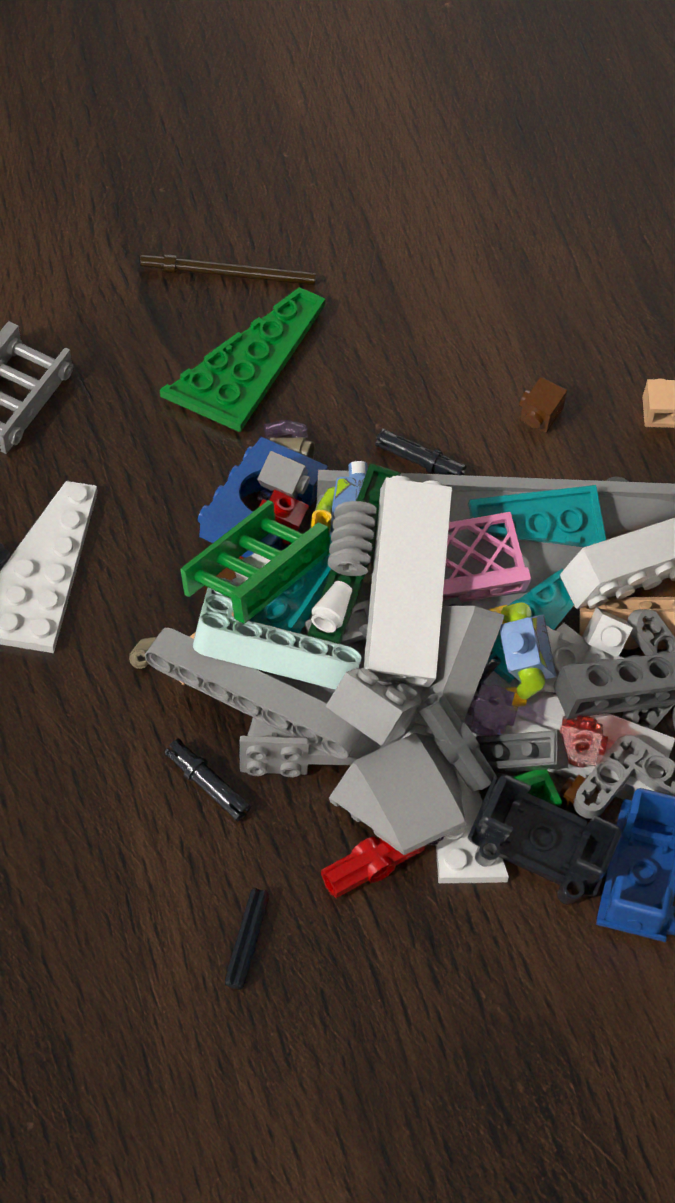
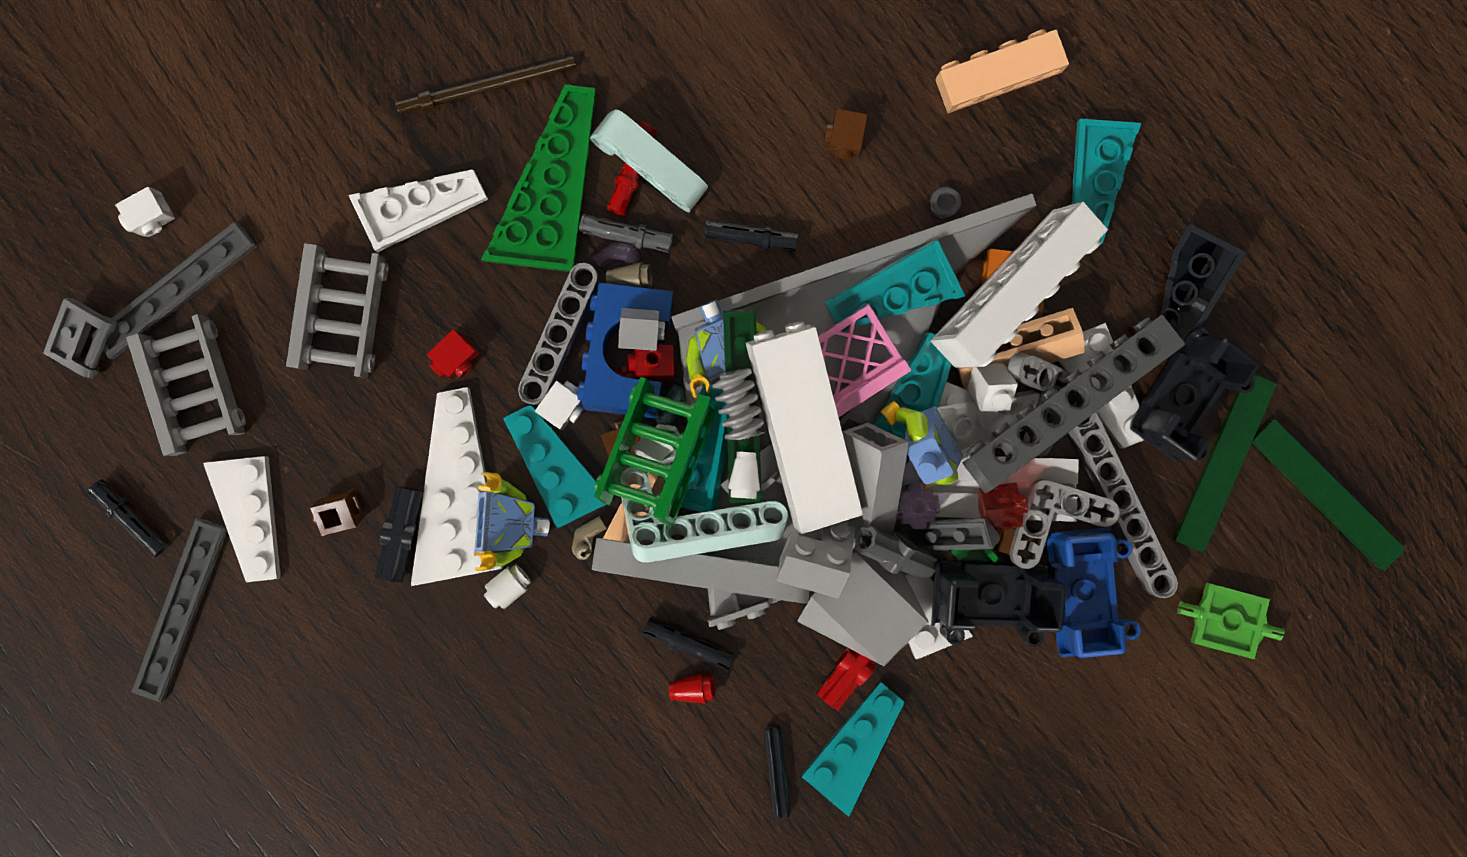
camera: 20 degrees left, 30 degrees up
(50, 663) = (507, 587): none -> white brick
(78, 597) = (504, 523): none -> torso
(96, 454) = (452, 355): none -> red brick
(108, 335) = (405, 210): none -> white wing
(147, 586) = (553, 466): none -> teal wing
(177, 527) = (561, 405): none -> white brick
(195, 823) = (694, 689): none -> red cone
(198, 484) = (559, 318): none -> light grey beam
(315, 421) = (618, 231): none -> dark grey pin
(322, 377) = (626, 182): none -> red pin
(329, 952) = (850, 754): none -> teal wing
(352, 361) = (643, 153): none -> light aqua beam

